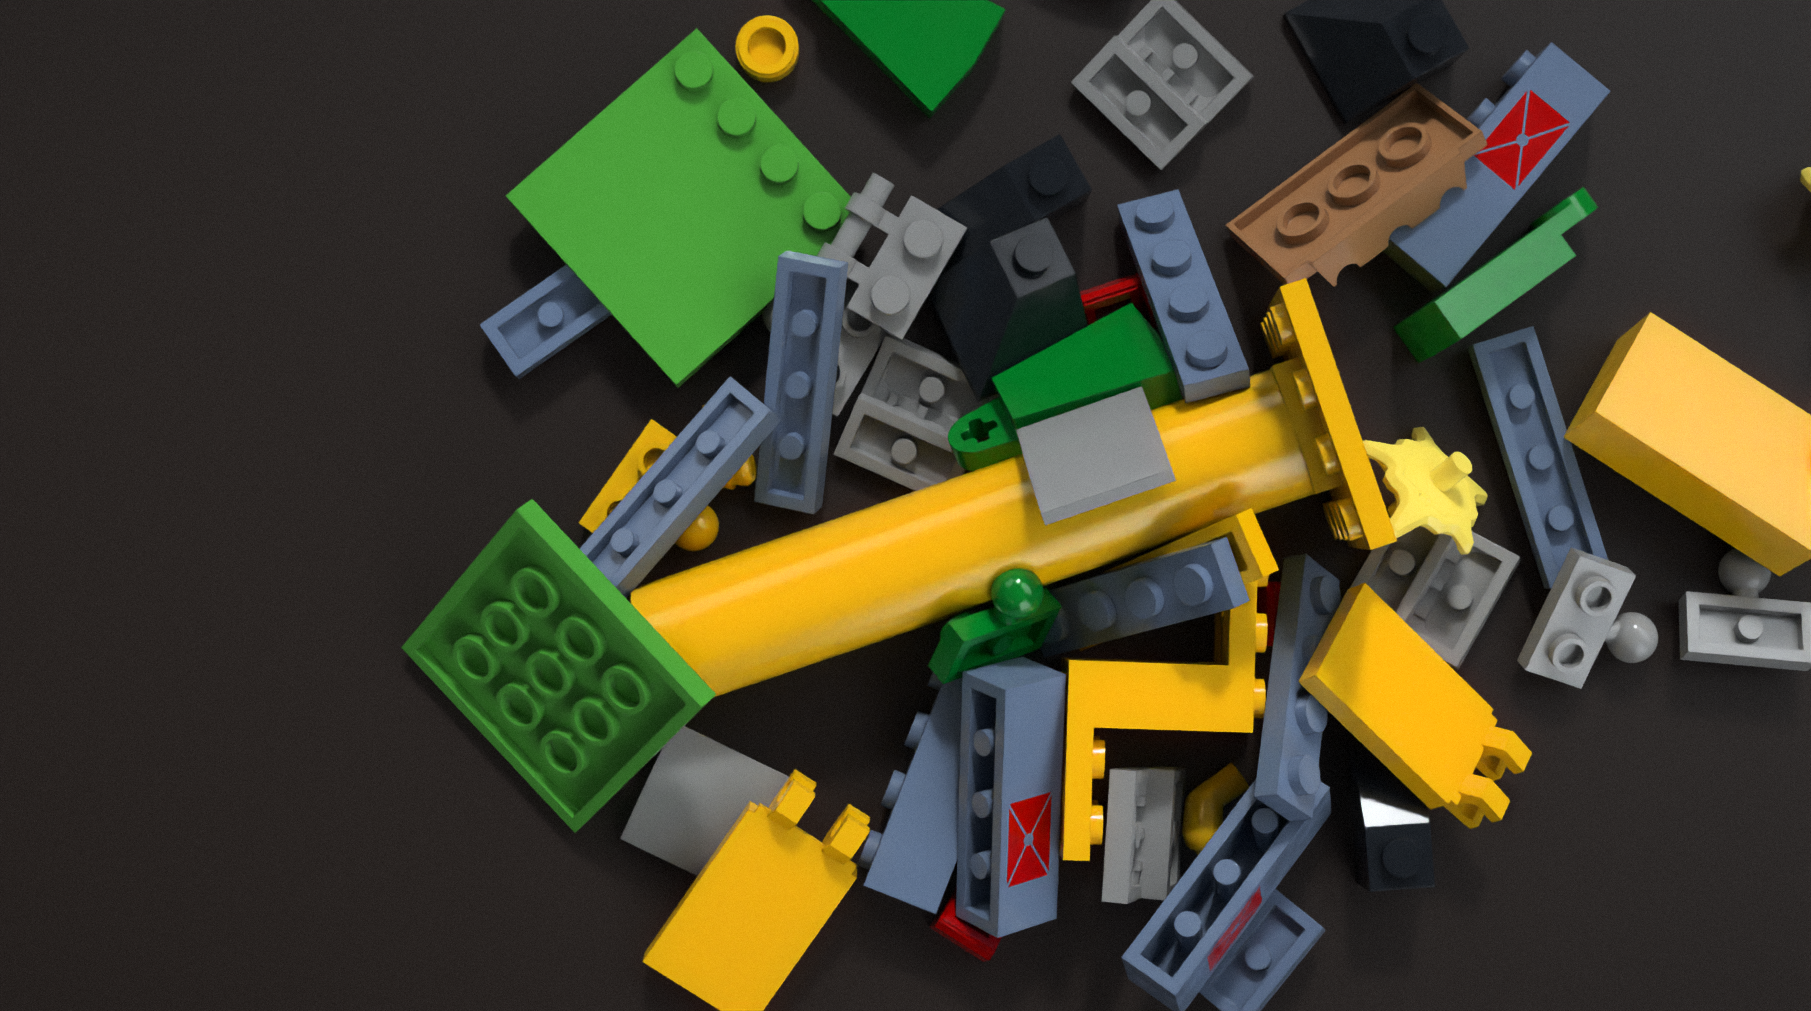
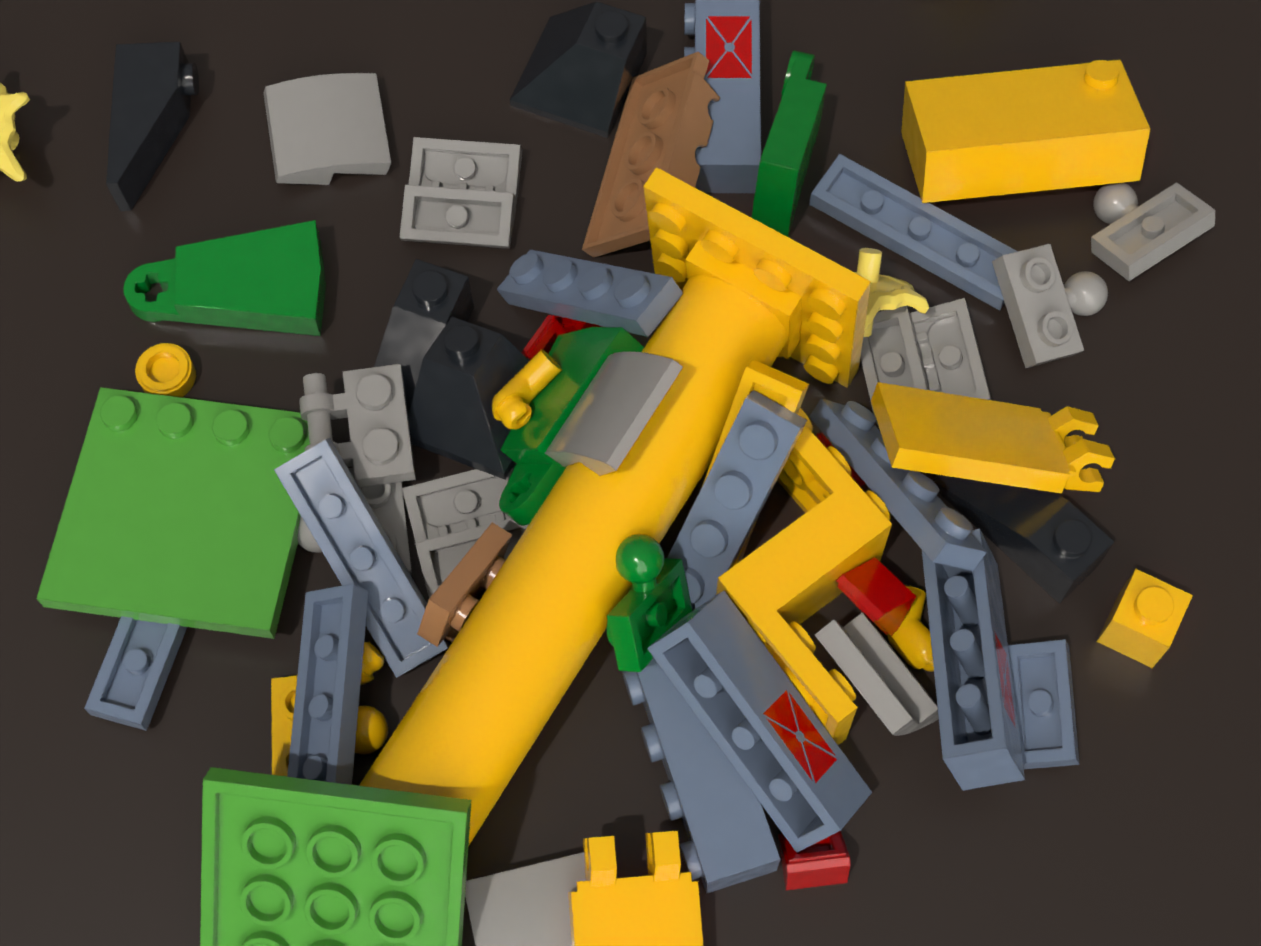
camera: 40 degrees left, 20 degrees down
(845, 486) = (457, 595): none -> medium nougat plate
(1054, 339) = (512, 401): none -> yellow arm
(1200, 764) = (877, 594): none -> red slope
(1407, 961) = (1144, 618): none -> yellow brick

